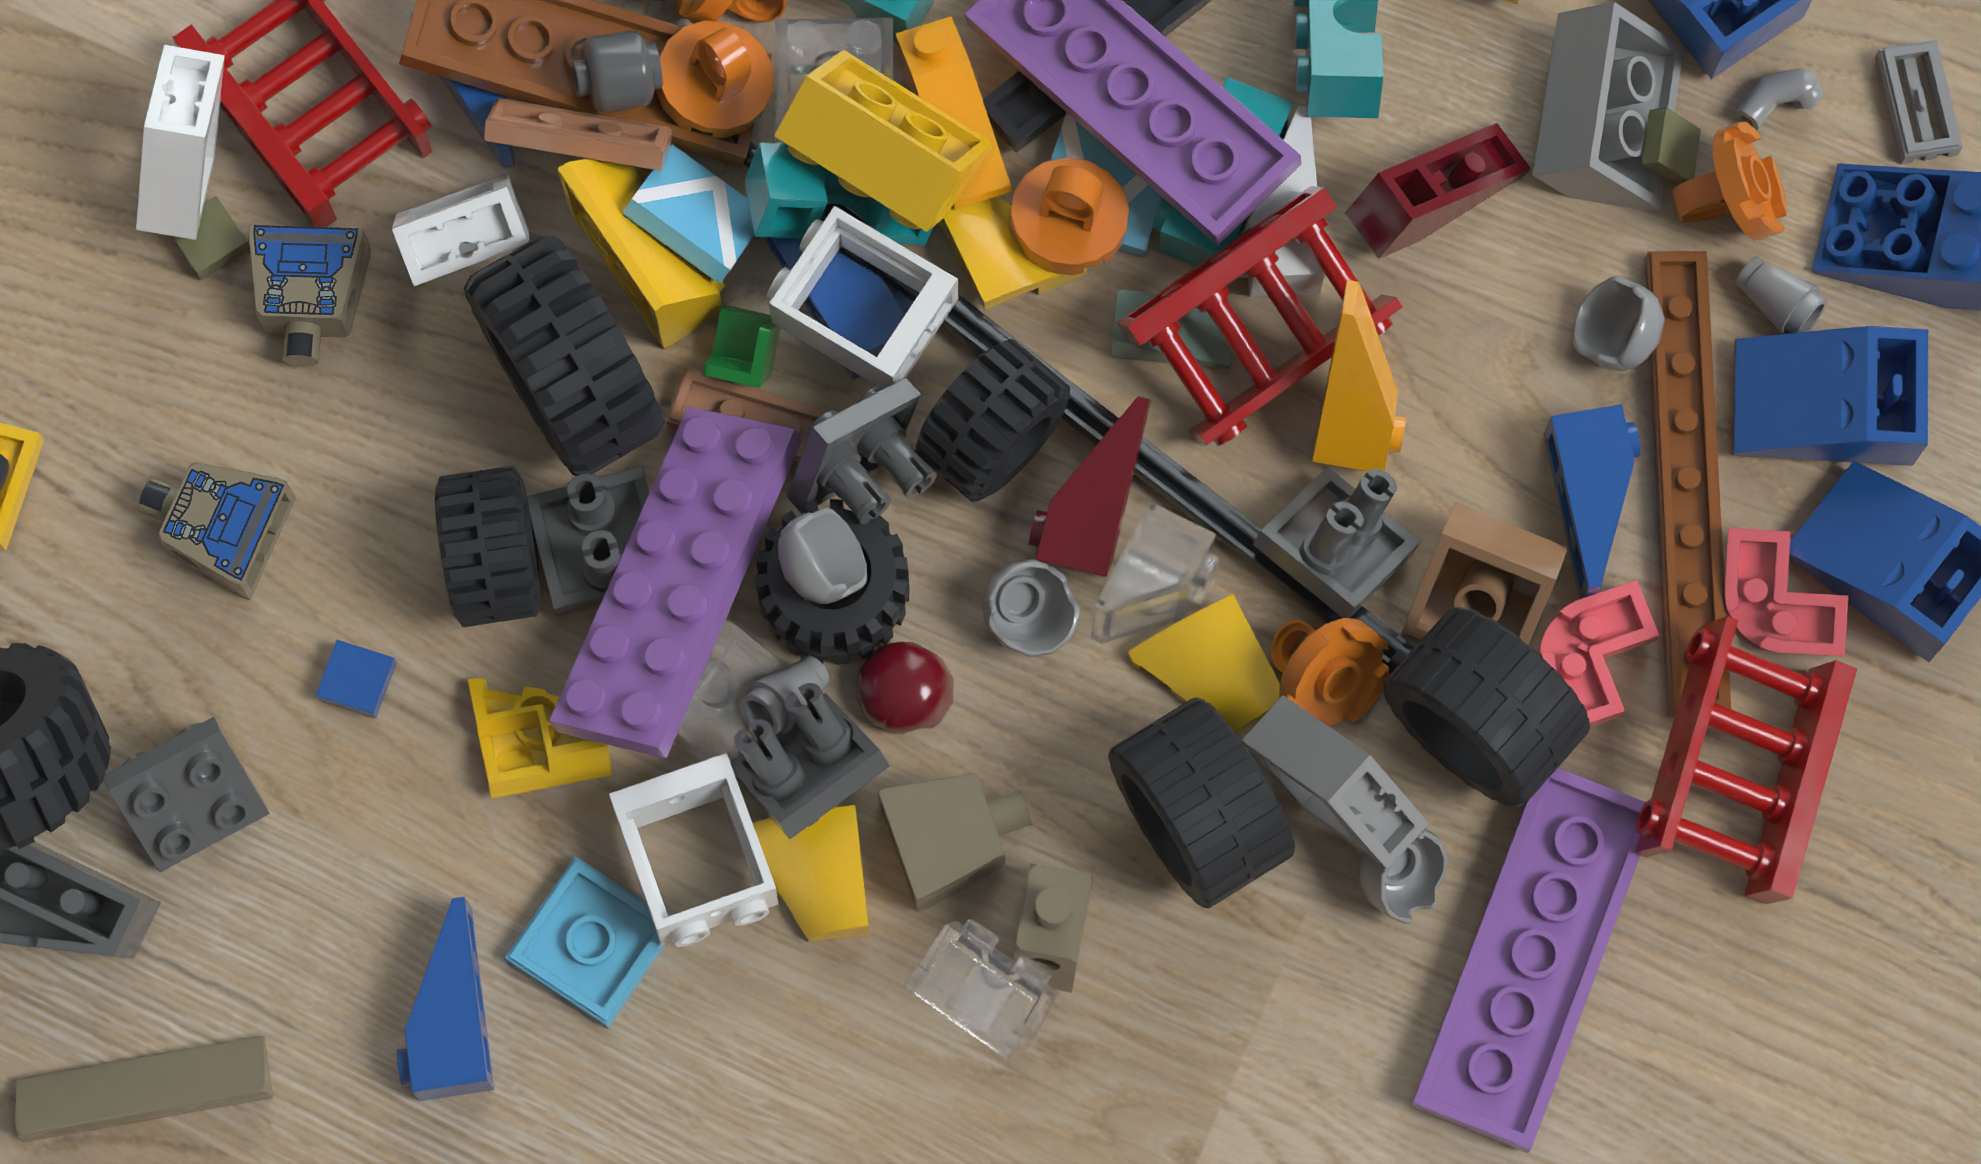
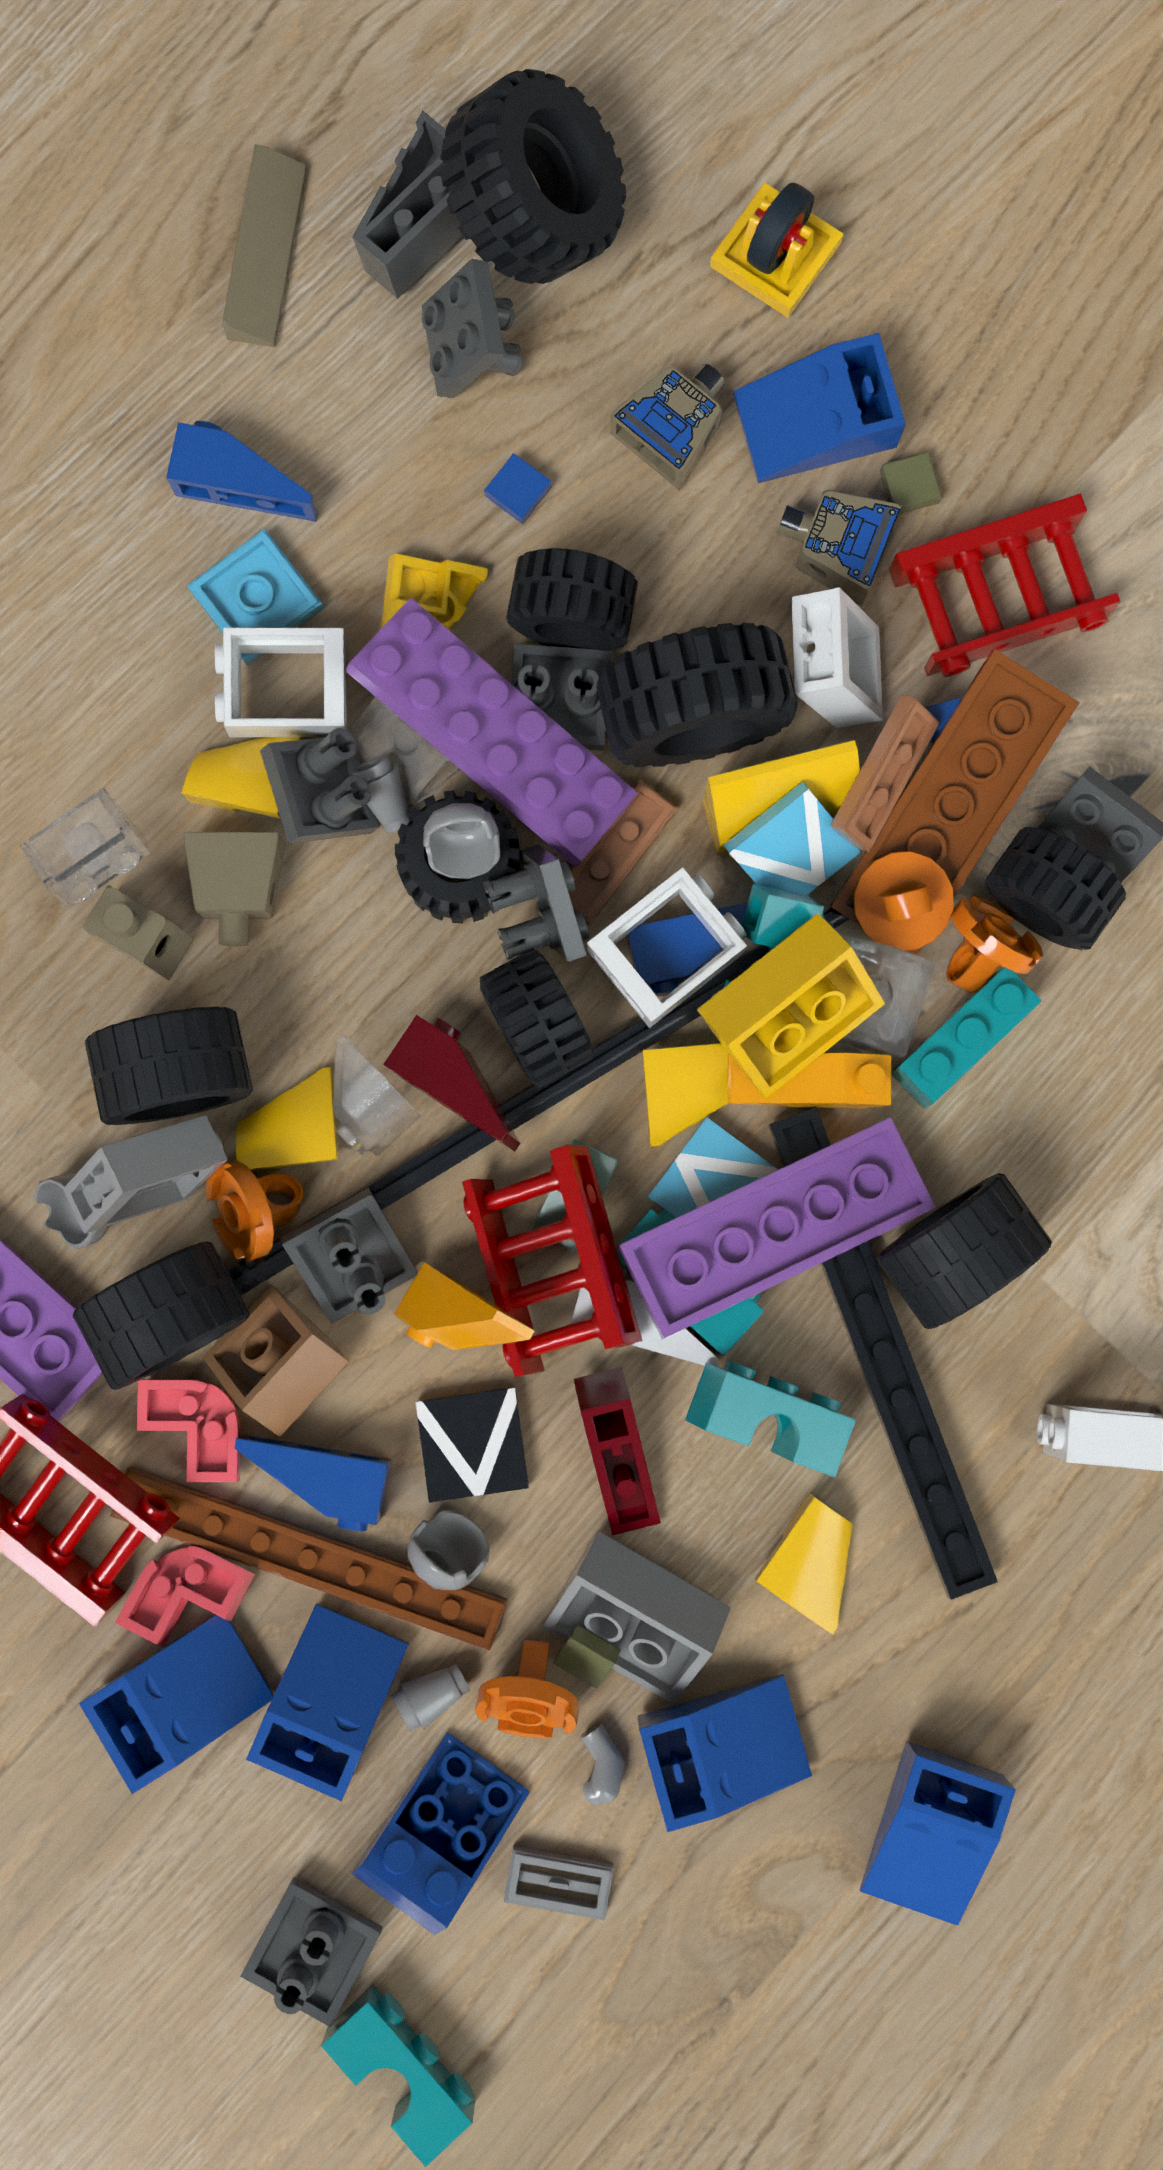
camera: 110 degrees right, 10 degrees up
(156, 357) = (821, 410): none -> blue slope
(179, 142) = (971, 463): white window -> none
(617, 71) = (925, 816): dark grey head -> none
(743, 347) = (667, 849): green panel -> none
(904, 687) = (363, 888): dark red hair -> none
(1030, 608) = (382, 999): light grey hair -> none
(1069, 215) = (693, 1143): orange tile -> none
(1492, 348) = (472, 1444): none -> black tile

